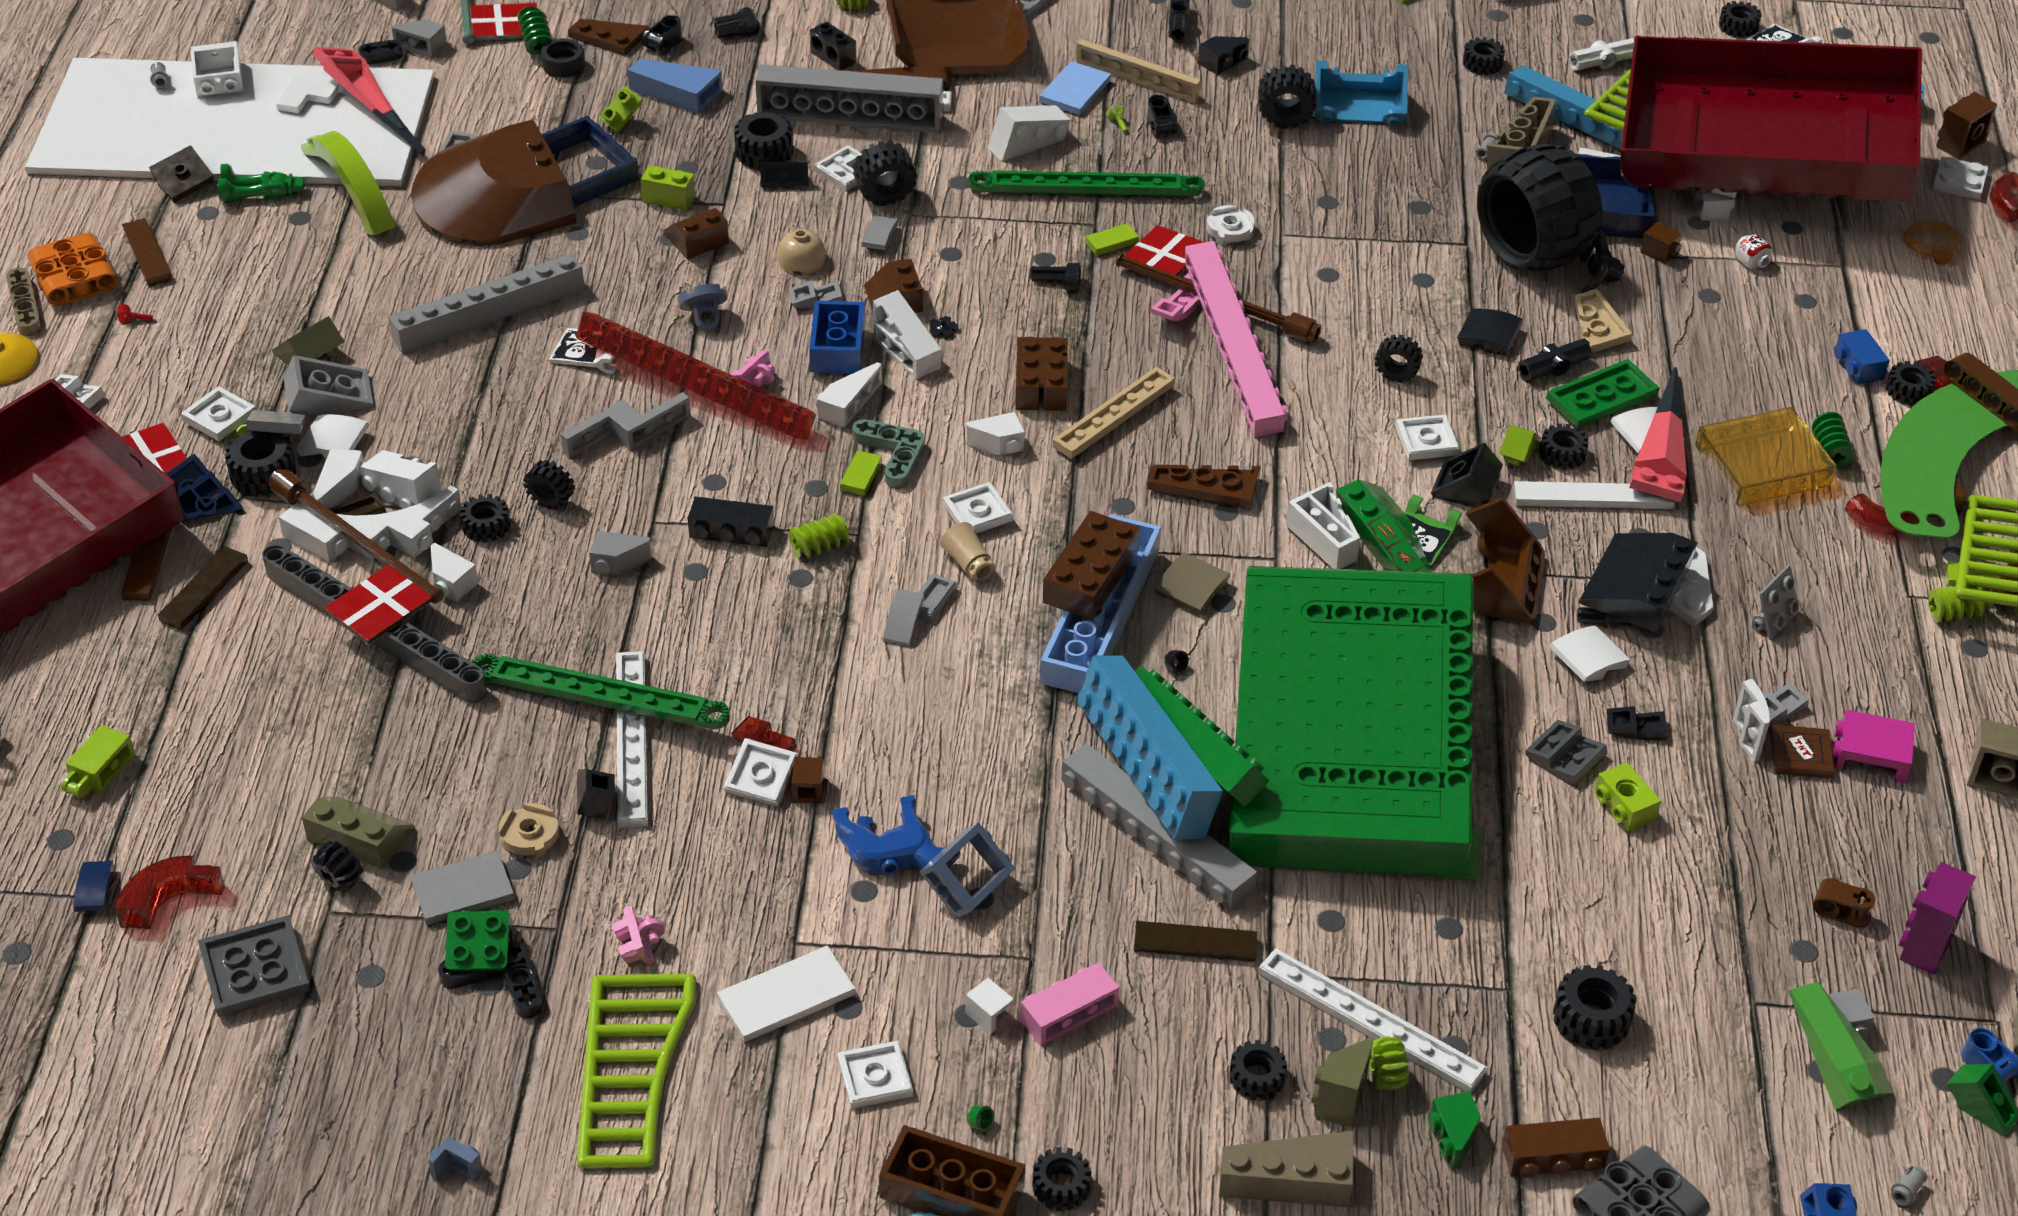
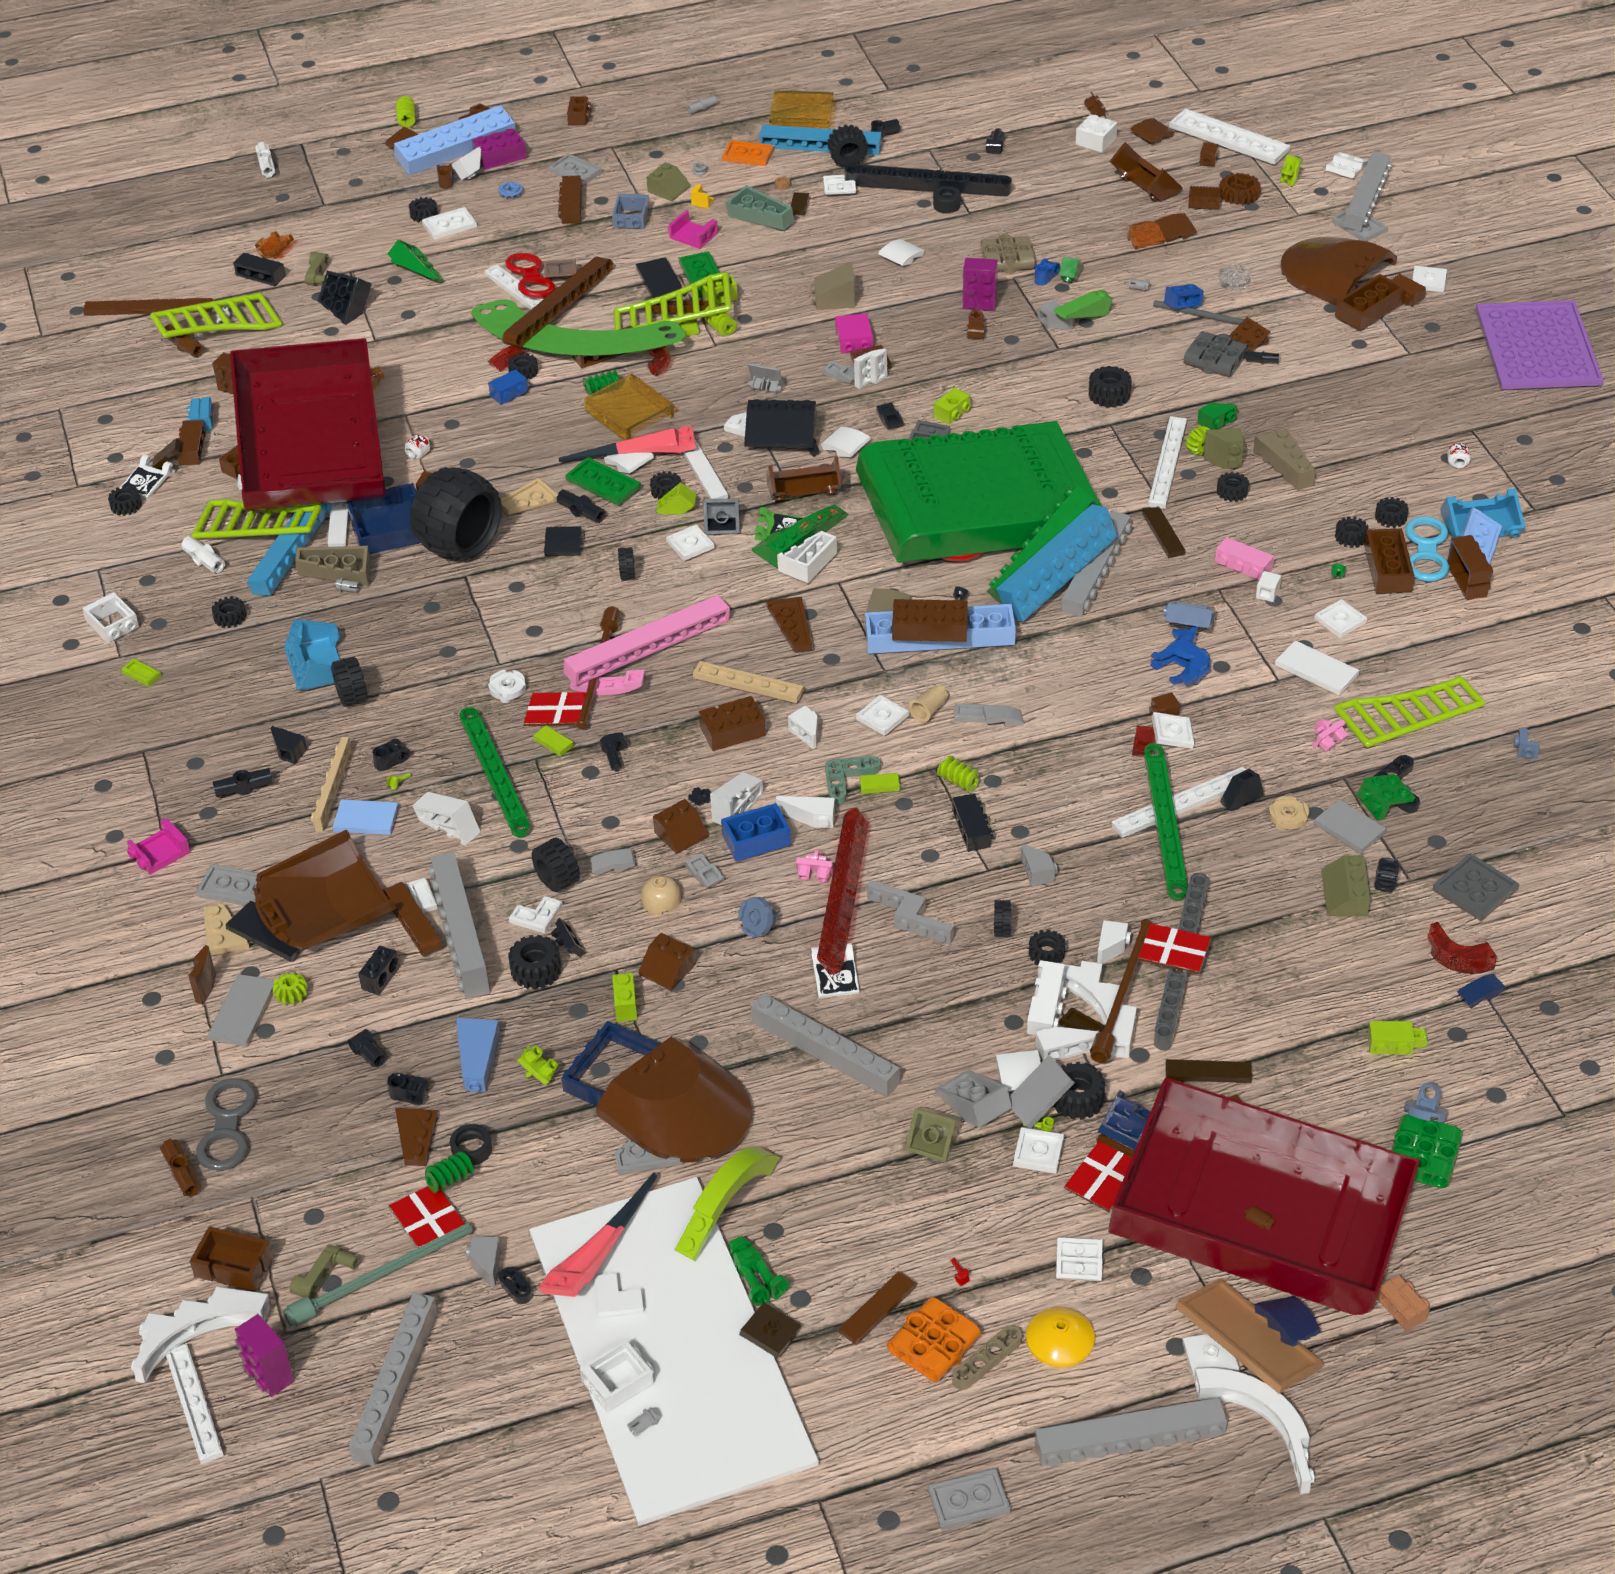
camera: 110 degrees left, 0 degrees up
(1555, 1147) = (1203, 384): reddish brown brick -> none

